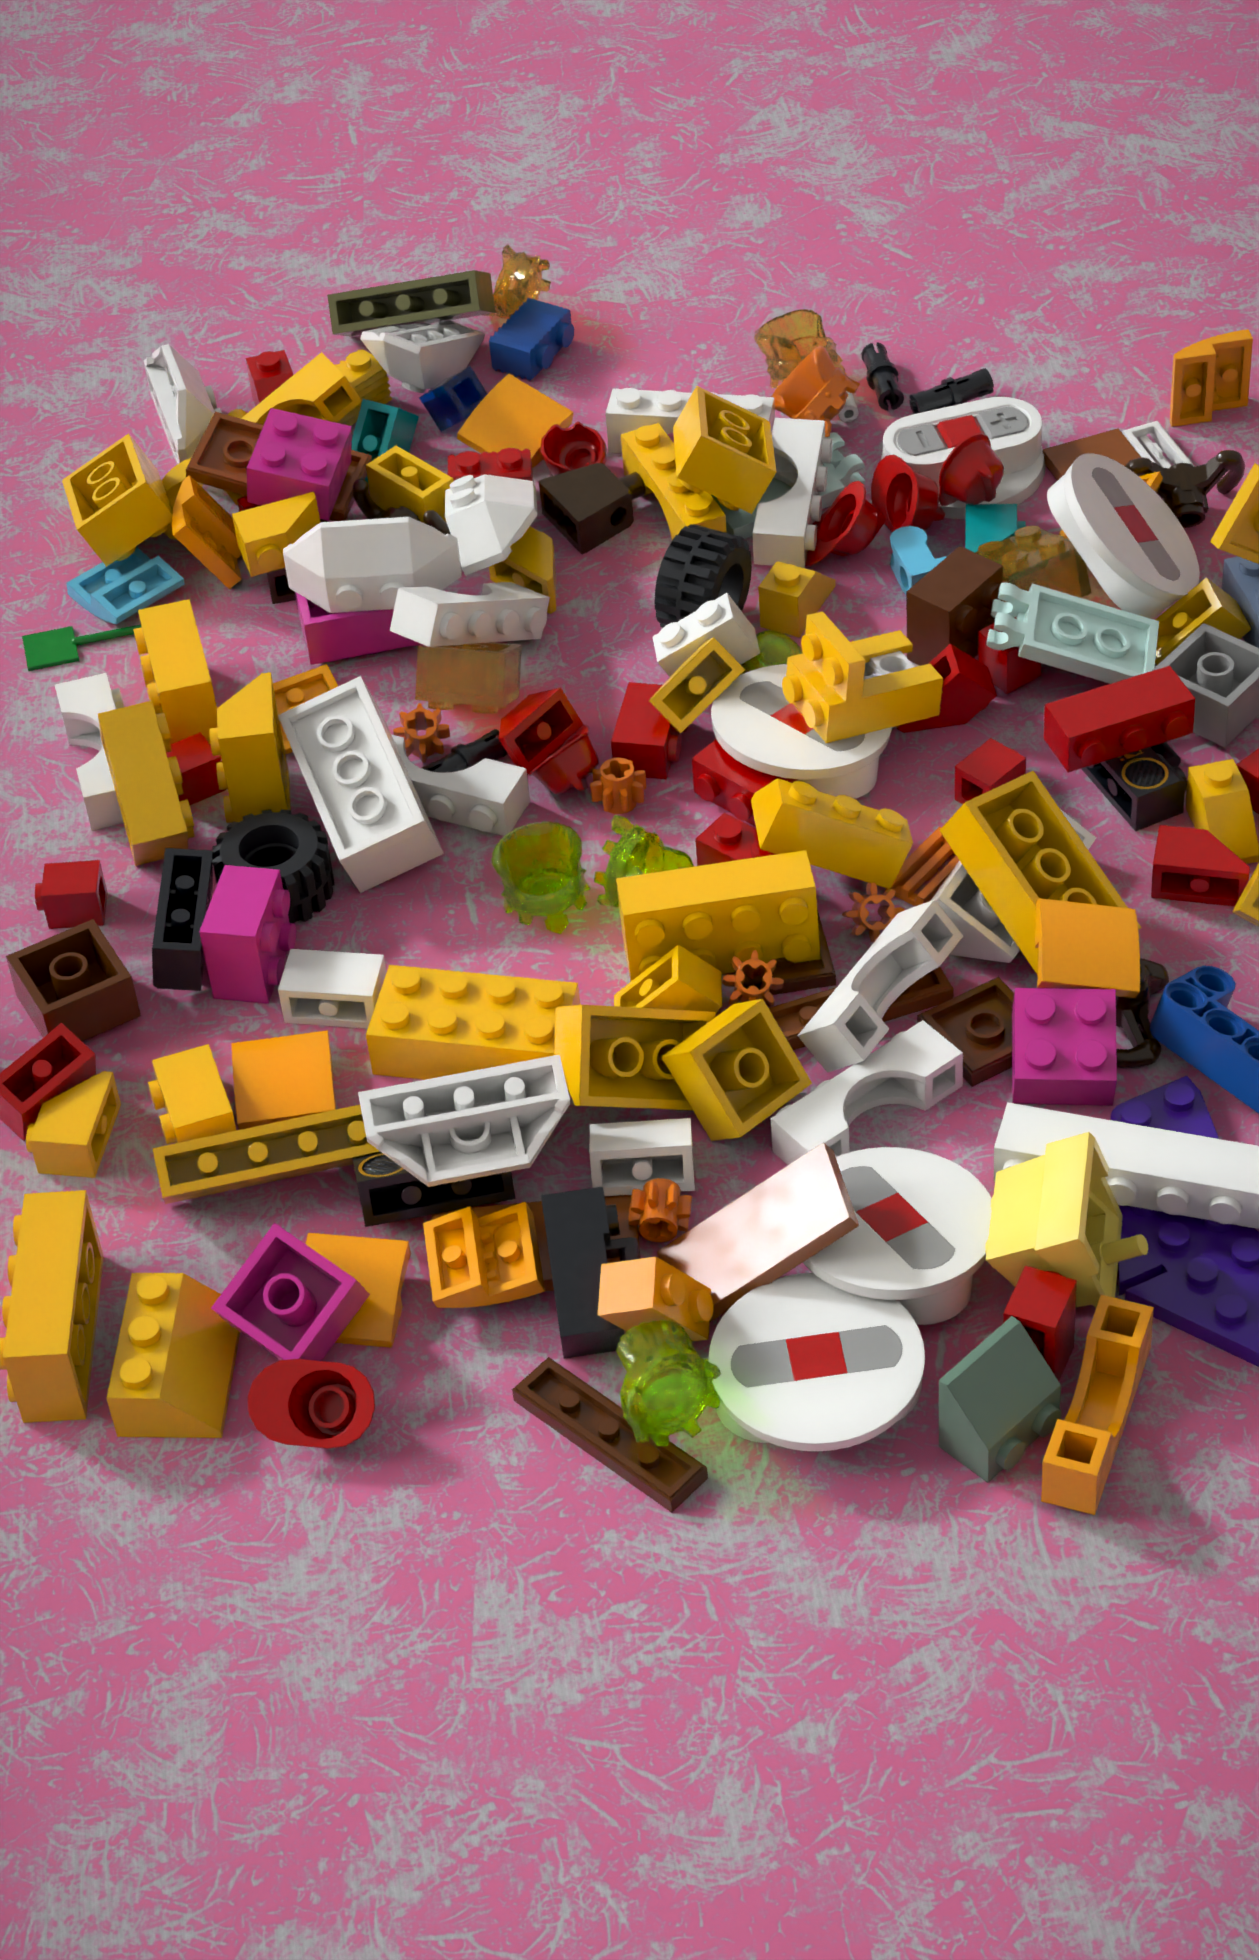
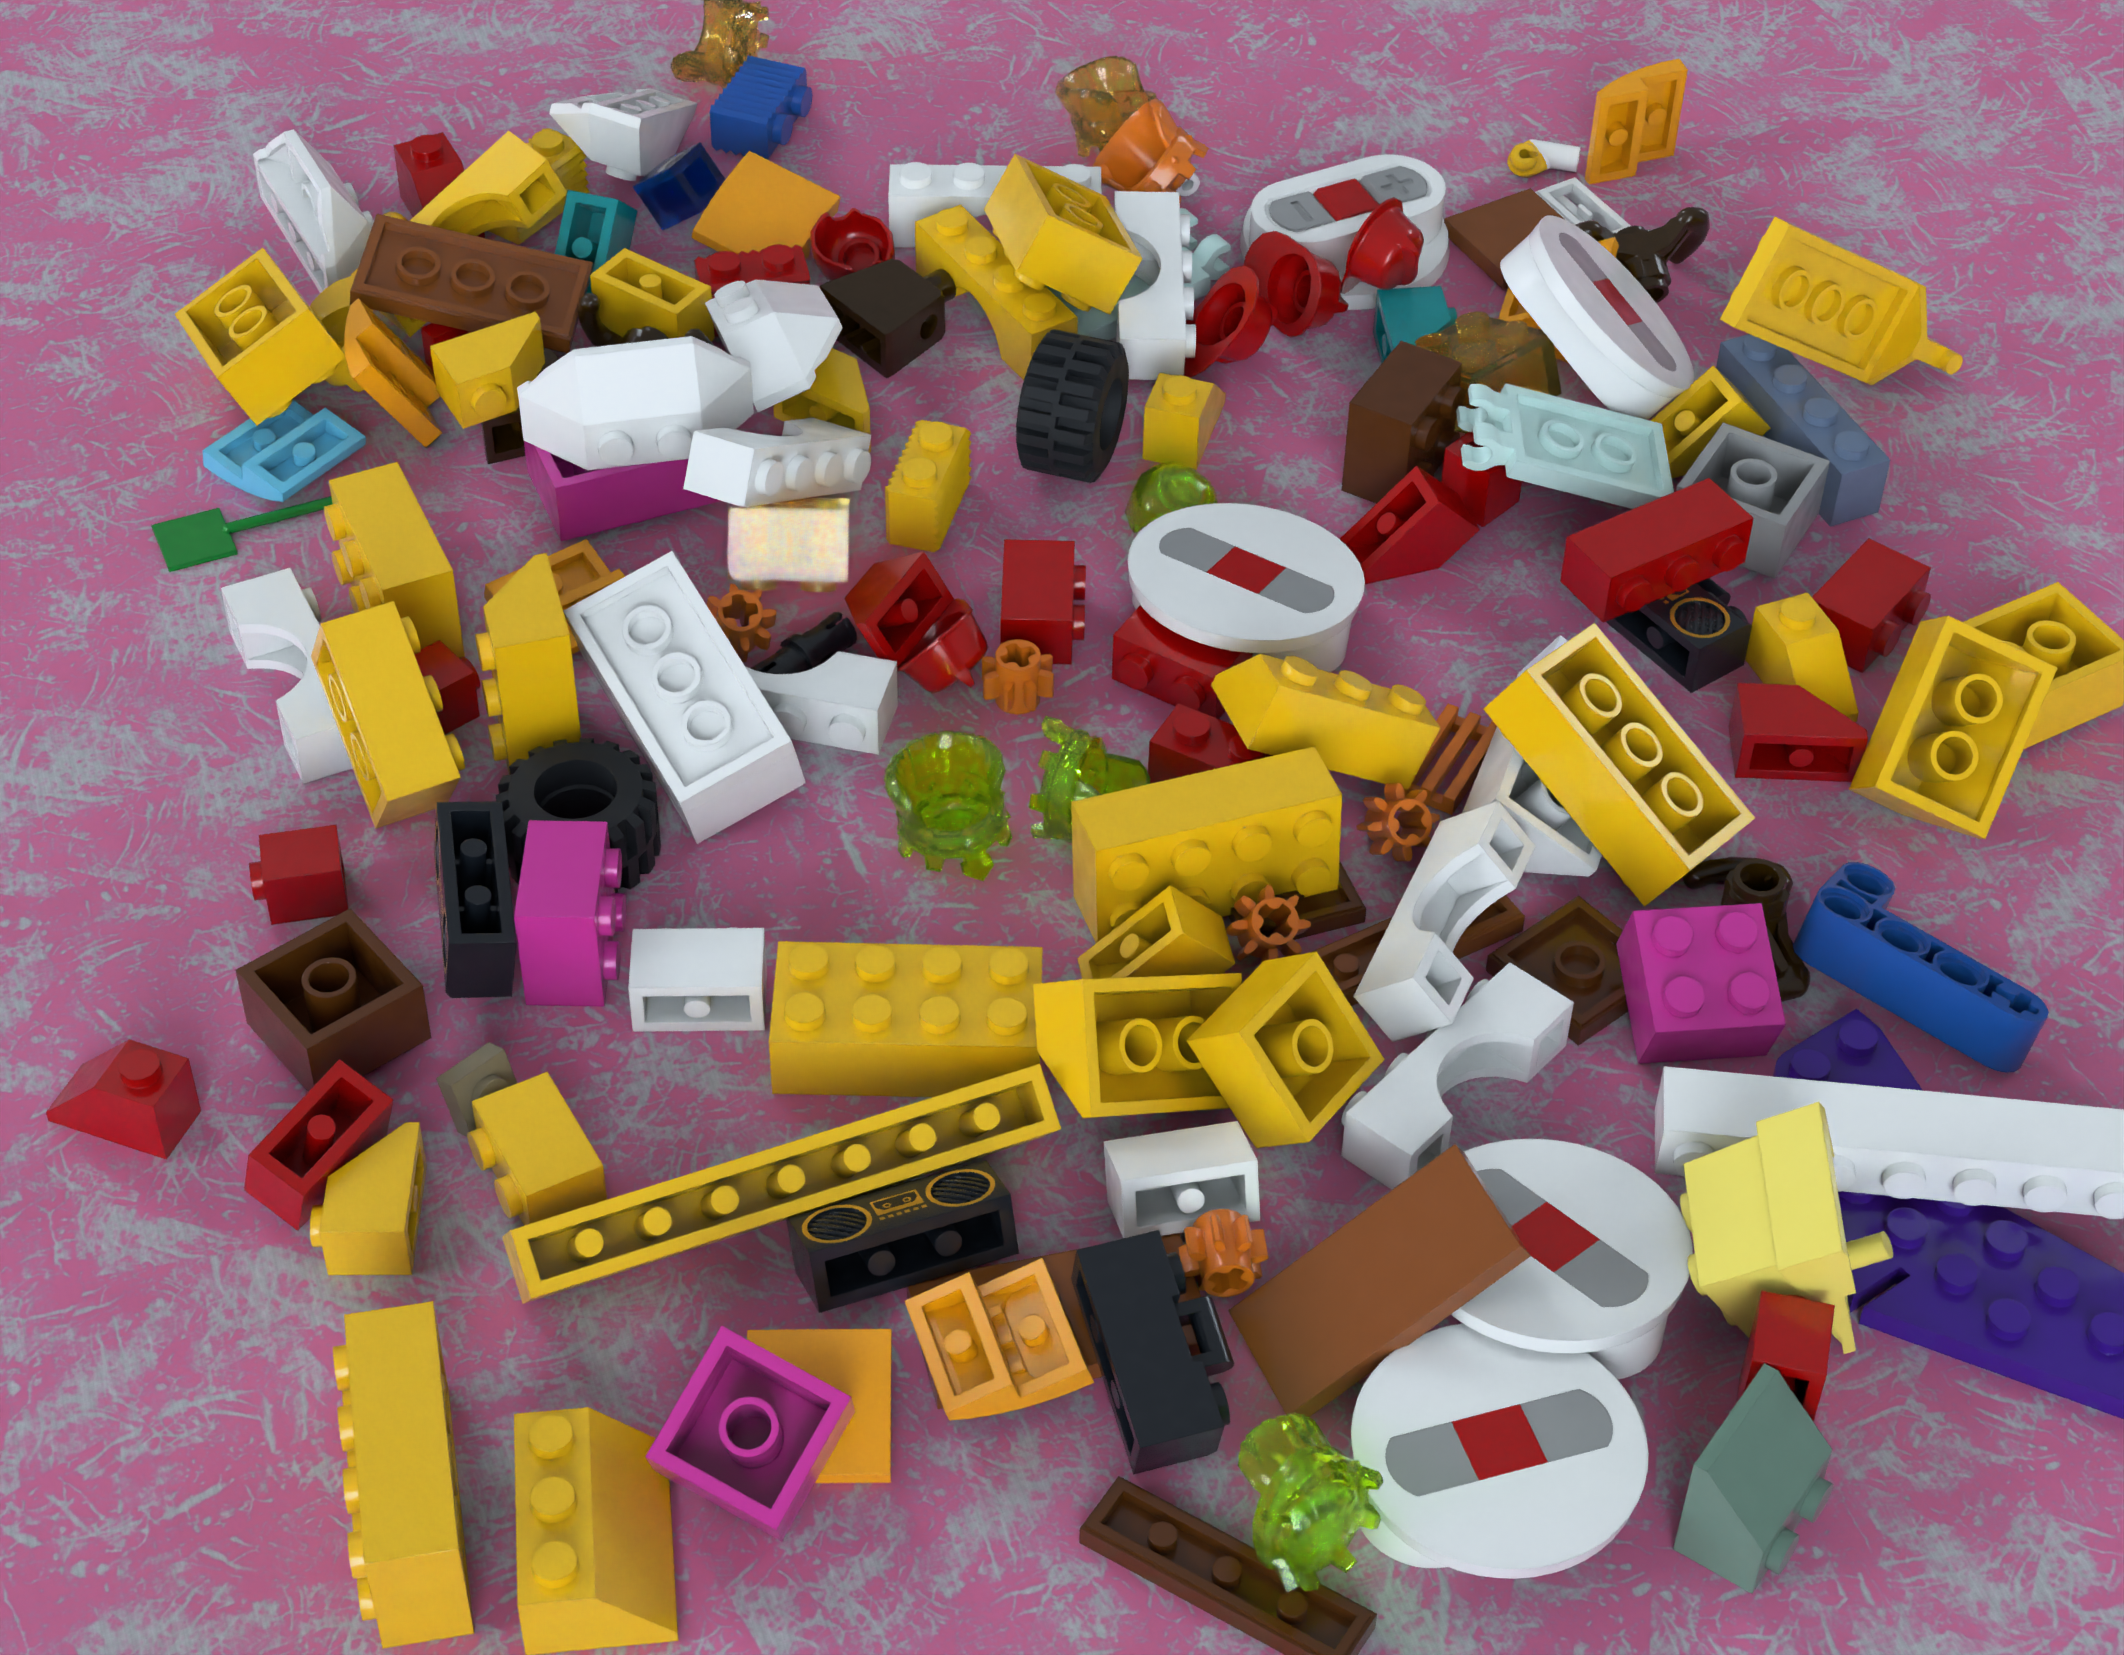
camera: 15 degrees left, 0 degrees up
(157, 1044) = (473, 1078): none -> dark tan plate
(282, 1078) = (655, 1112): light orange slope -> none
(298, 458) = (505, 269): dark pink brick -> none
(311, 1403) = (812, 1581): red piece -> none
(412, 302) = (599, 66): olive brick -> none
(468, 1120) = (956, 1153): white wedge -> none
(586, 638) = (927, 485): none -> yellow brick
(654, 1291) = (1262, 1377): light orange brick -> none
(696, 684) = (1102, 534): yellow slope -> none
(715, 619) = (1094, 484): white brick -> none
(859, 683) = (1314, 523): yellow brick -> none
(882, 376) = (1219, 136): black pin -> none
(911, 556) = (1326, 369): medium azure leg -> none
(953, 392) = (1312, 153): black pin -> none
(987, 769) = (1497, 637): red brick -> none
(1087, 947) = (1710, 849): light orange slope -> none
(1089, 1436) = (1879, 1516): light orange arch -> none
(1134, 402) = (1538, 156): none -> arm

